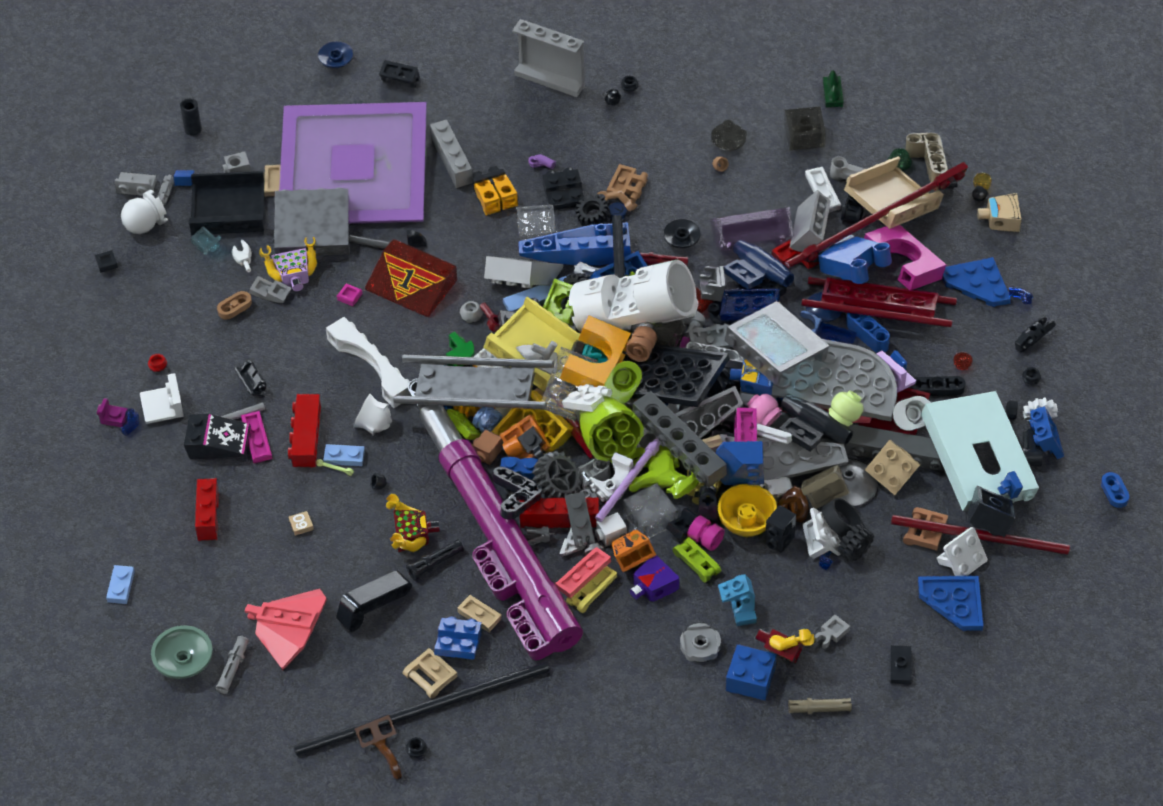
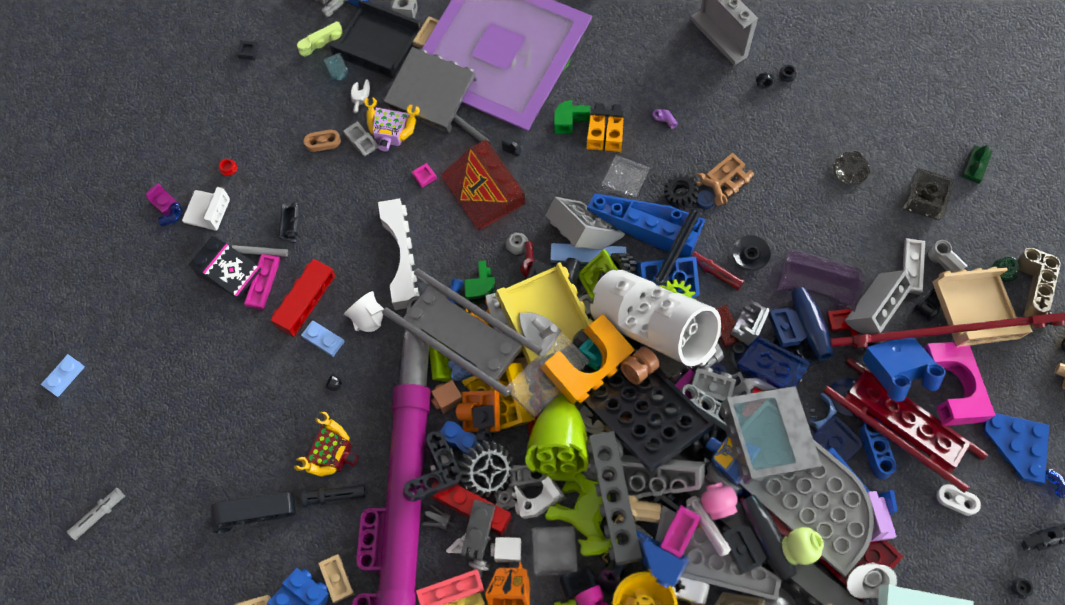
camera: 30 degrees right, 15 degrees up
(142, 214) = (298, 19): white tile -> none
(172, 224) = (319, 39): none -> yellowish green hinge
(180, 644) = (48, 473): sand green dish -> none
(206, 509) = (164, 348): red arch -> none
(287, 623) = (168, 493): coral panel -> none
(301, 523) = (244, 391): tan tile -> none
(348, 471) = (298, 336): yellowish green hinge -> none
(451, 153) = (589, 73): light grey brick -> none
(454, 192) = (567, 114): none -> green brick
(563, 188) = (668, 154): black plate -> none
(584, 268) = (639, 247): white piece -> none
(586, 398) = (545, 408): white plate -> none
(624, 380) = (594, 404): lime piece -> none
(651, 449) = (588, 487): lavender bar -> none
(722, 161) = (831, 194): medium nougat hinge -> none
(943, 380) = (929, 560): black beam -> none
(951, 338) = (957, 500): none -> white plate
(962, 361) = (953, 535): clear red plate -> none

